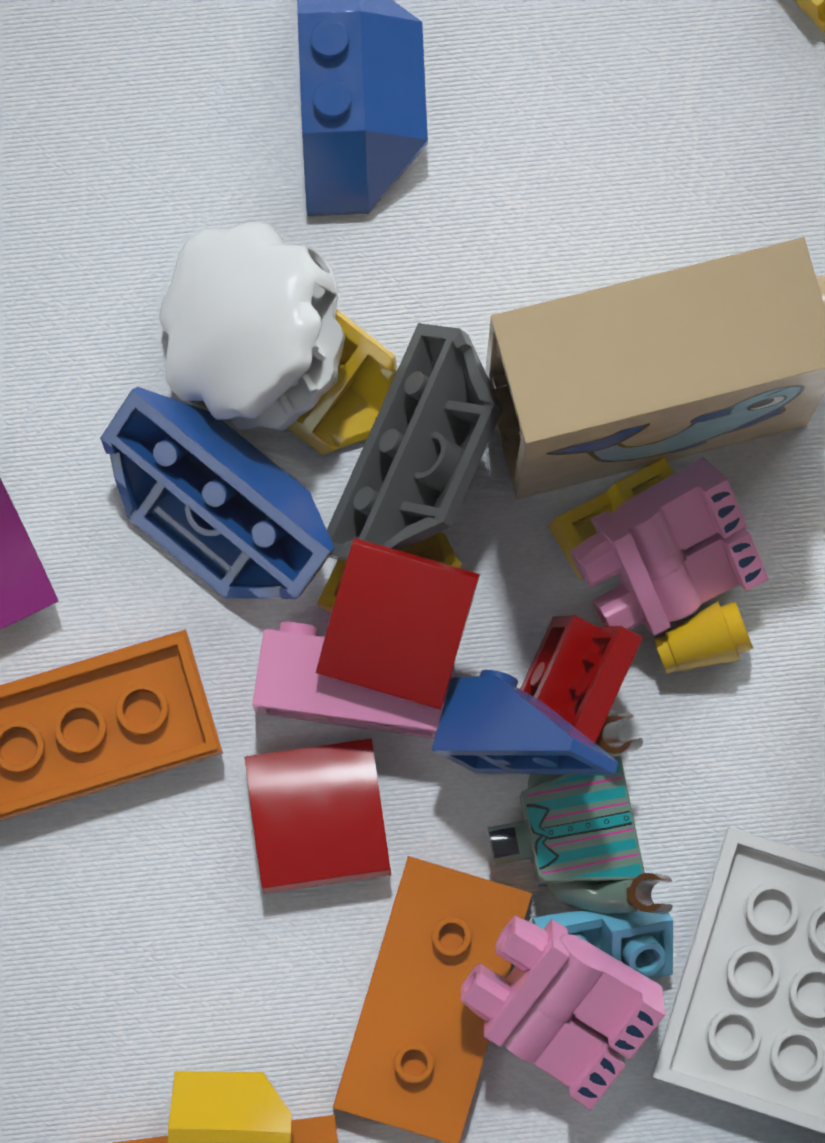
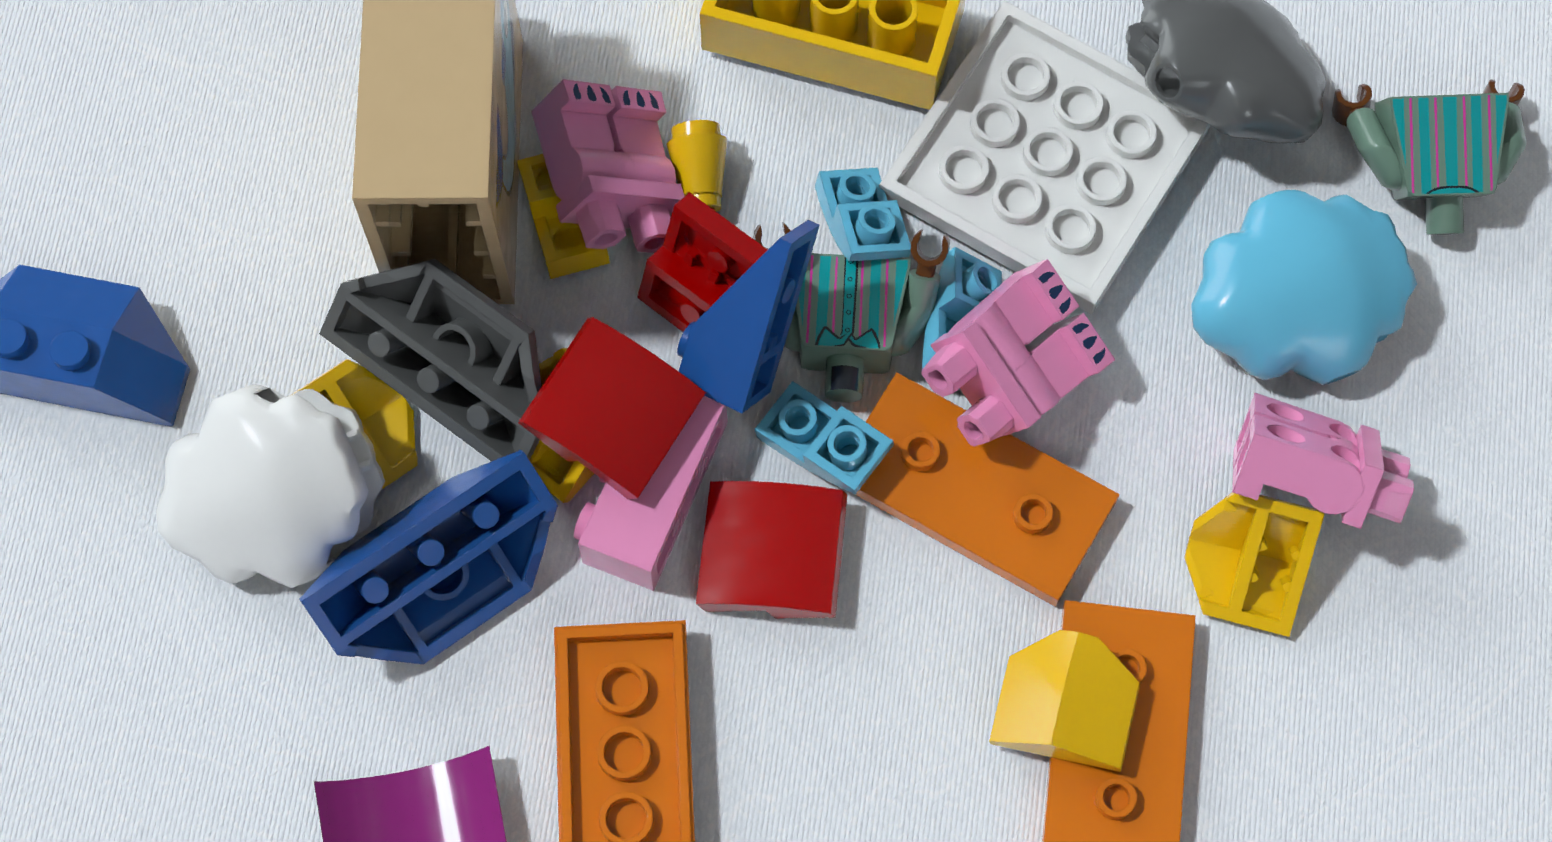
camera: 75 degrees left, 10 degrees down
(440, 837) = (822, 439): none -> medium azure slope
(686, 817) = (861, 216): none -> medium azure slope

